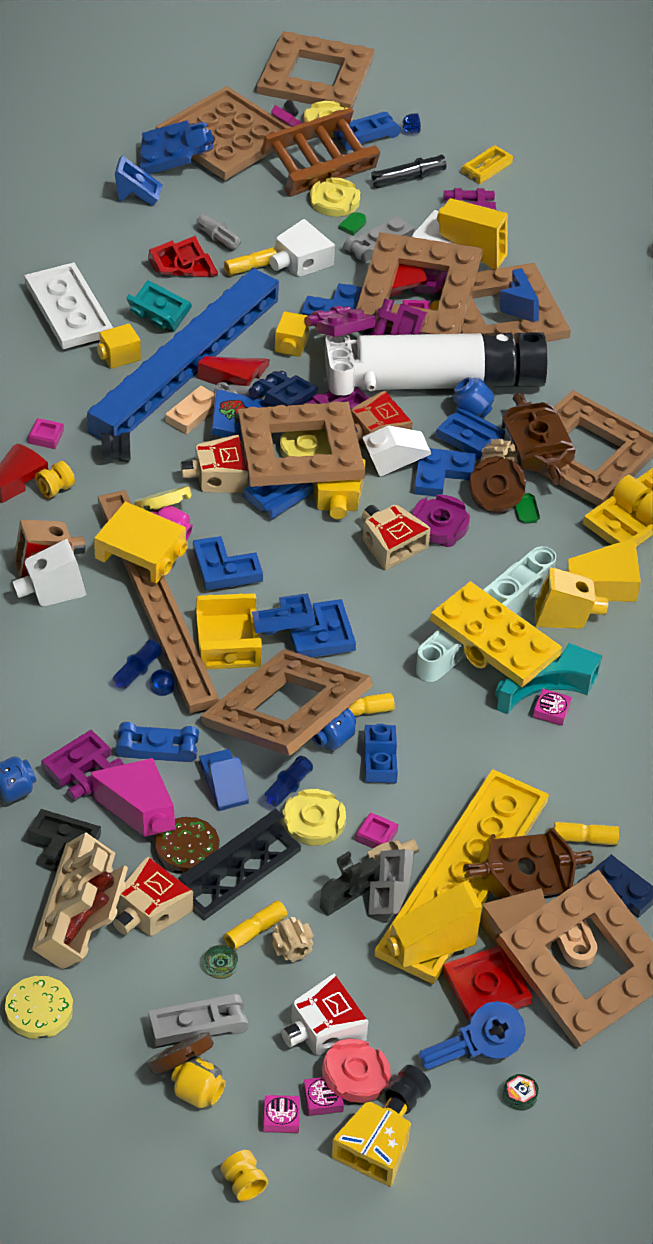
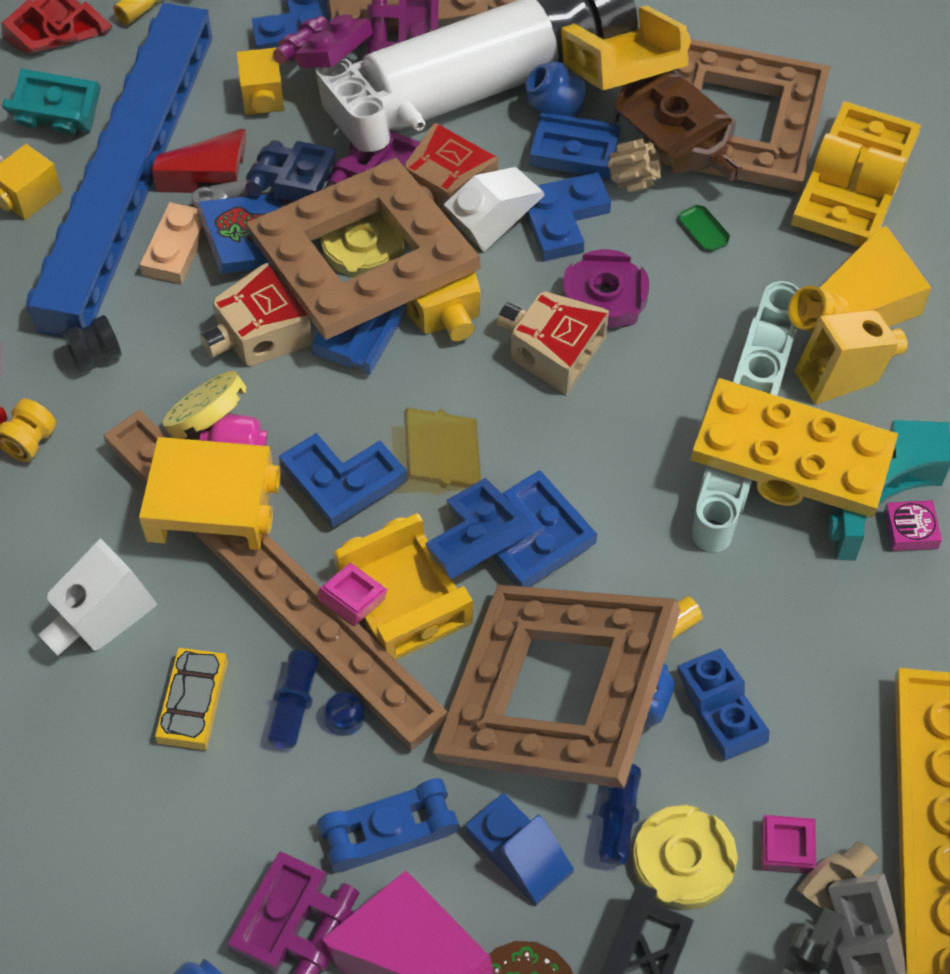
camera: 20 degrees left, 10 degrees up
(39, 535) = (54, 546): medium nougat torso -> none
(81, 645) = (192, 699): none -> tile
(196, 622) = (352, 594): none -> dark pink tile
(291, 569) = (441, 448): none -> clear yellow piece
(497, 484) = (656, 209): reddish brown tile -> none
(526, 389) = (650, 50): none -> yellow panel
(556, 560) = (813, 302): none -> yellow wheel

